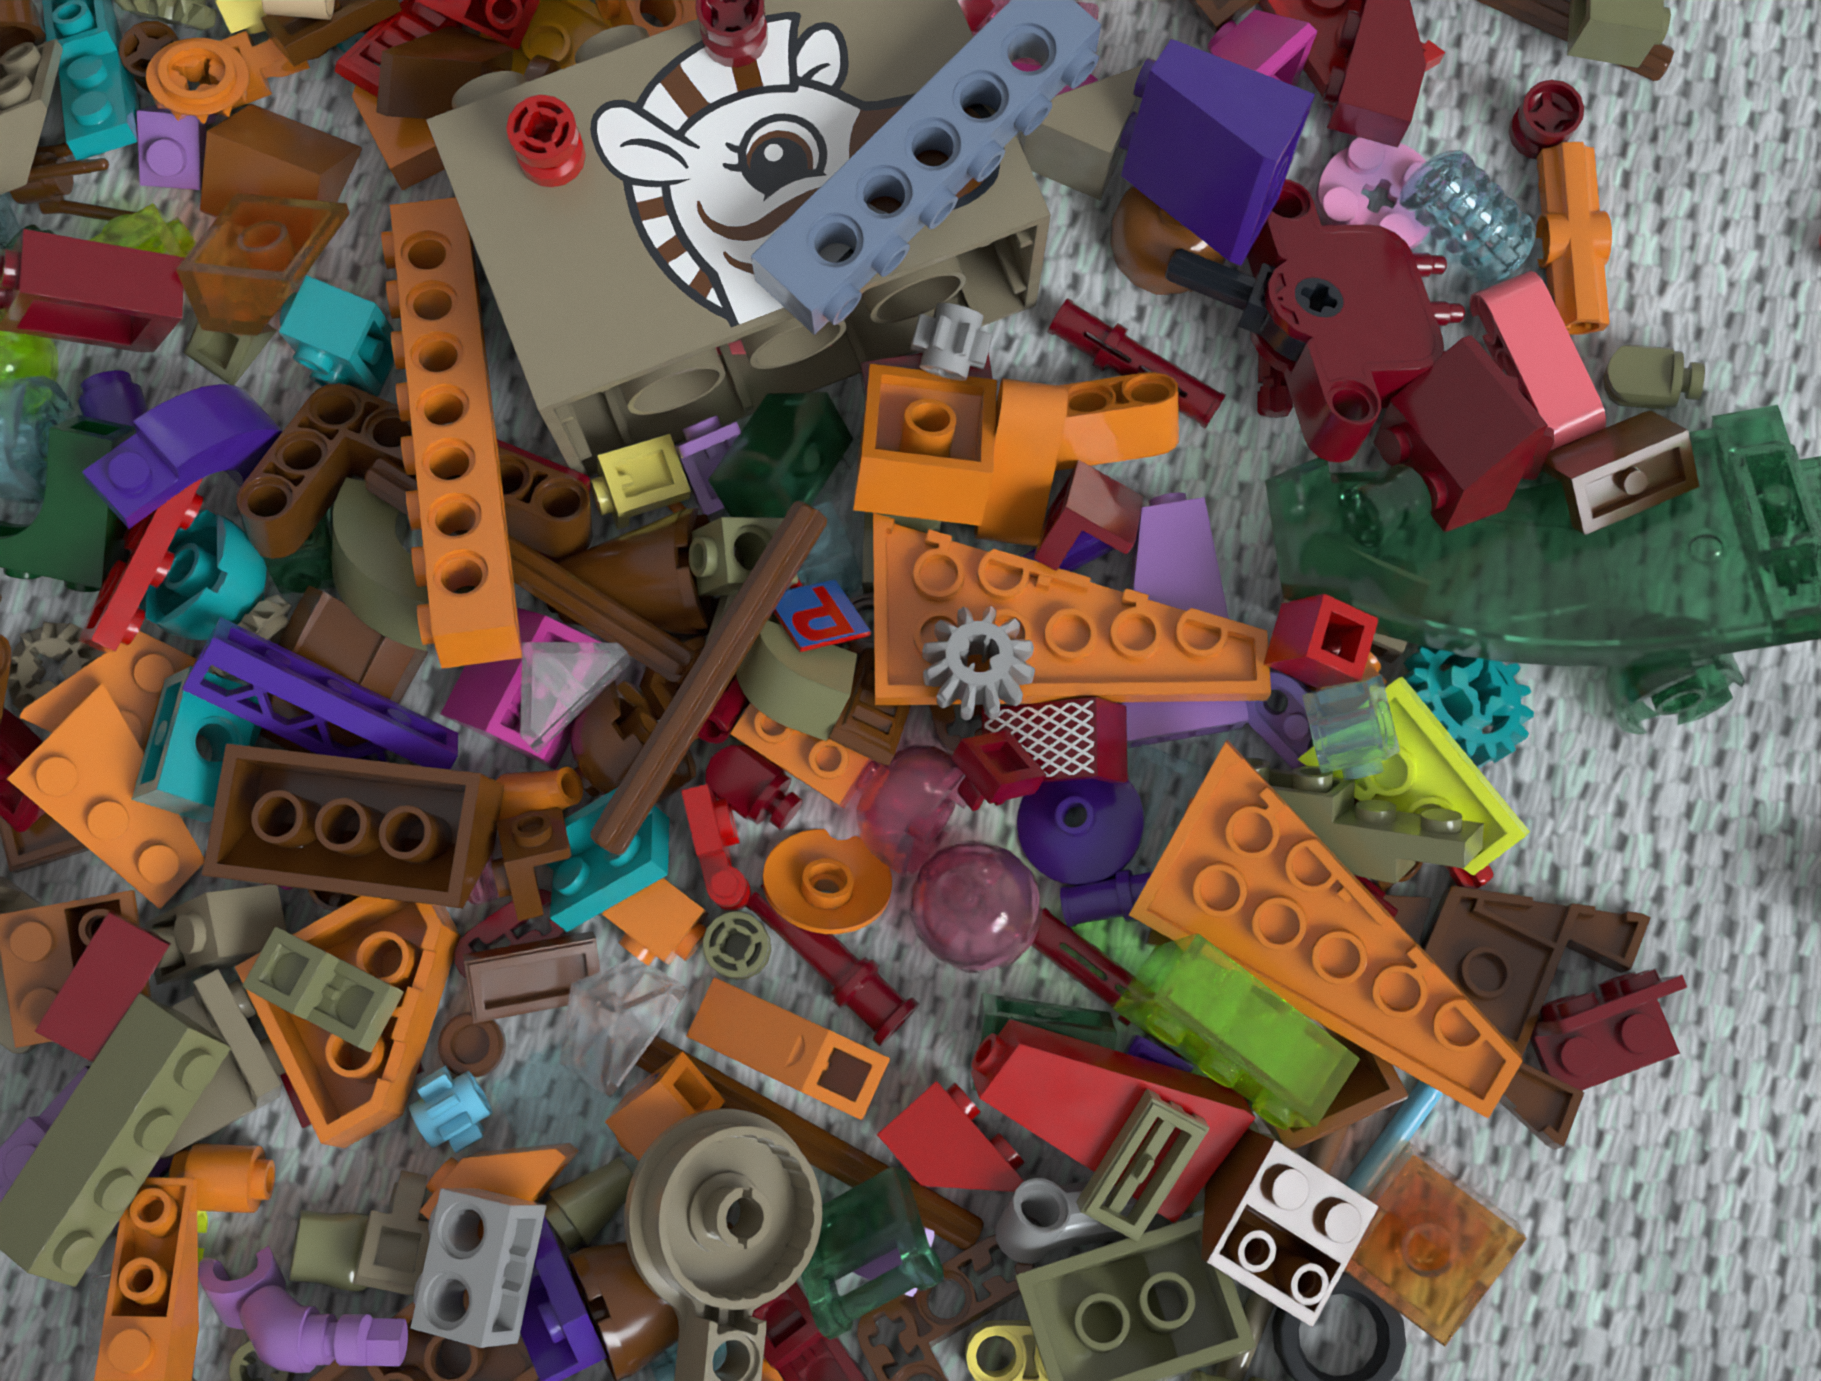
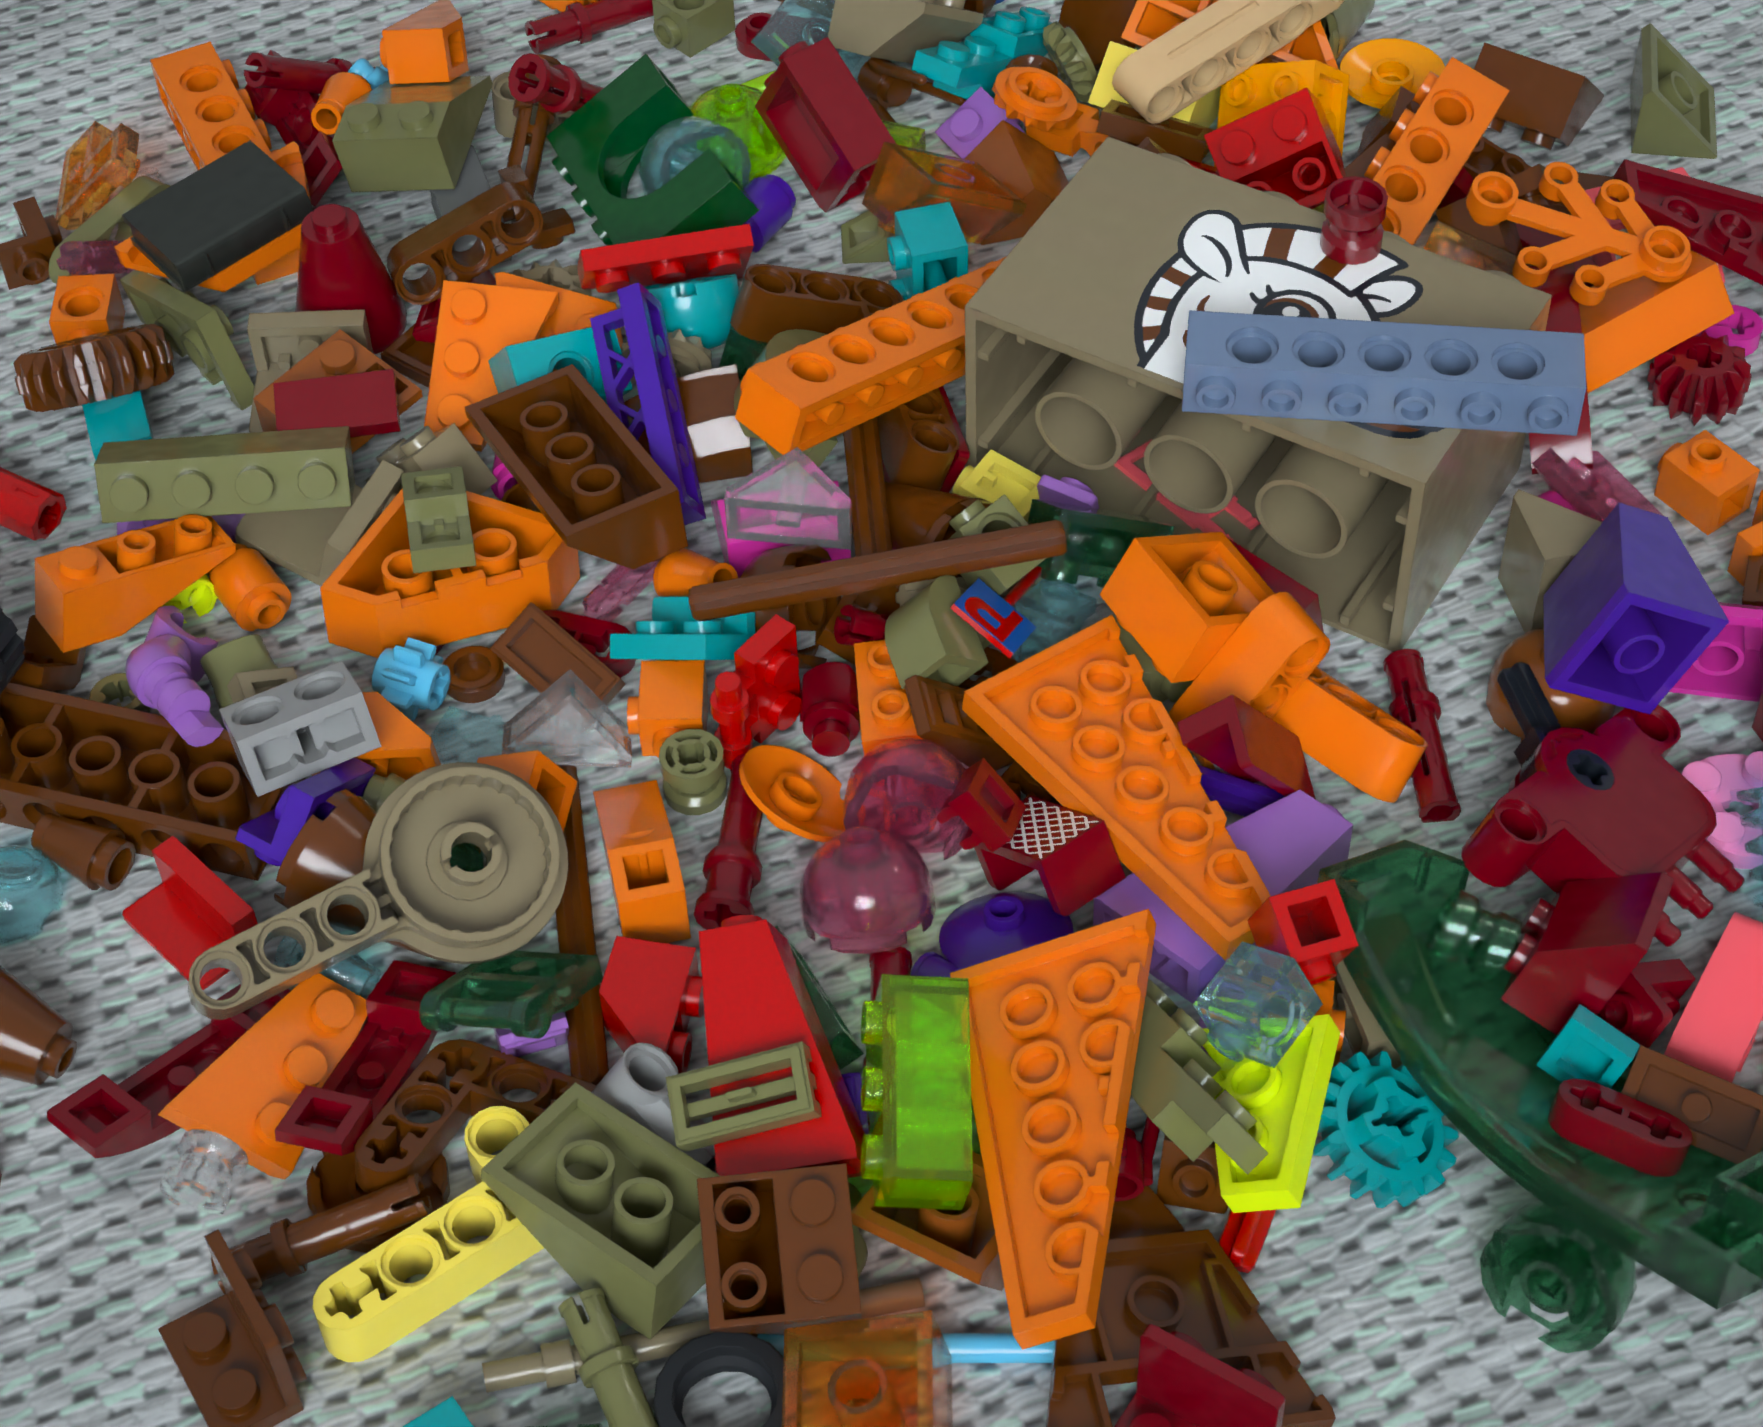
camera: 55 degrees right, 30 degrees down
(180, 444) = (766, 210): dark purple arch -> none
(525, 843) = (635, 583): reddish brown bracket -> none
(551, 157) = (1156, 183): red wheel -> none
(951, 341) = (1287, 553): light grey gear -> none
(973, 688) = (1052, 720): light grey gear -> none
(1536, 513) = (1588, 1050): none -> teal plate
(1609, 543) = (1620, 1127): none -> dark red beam

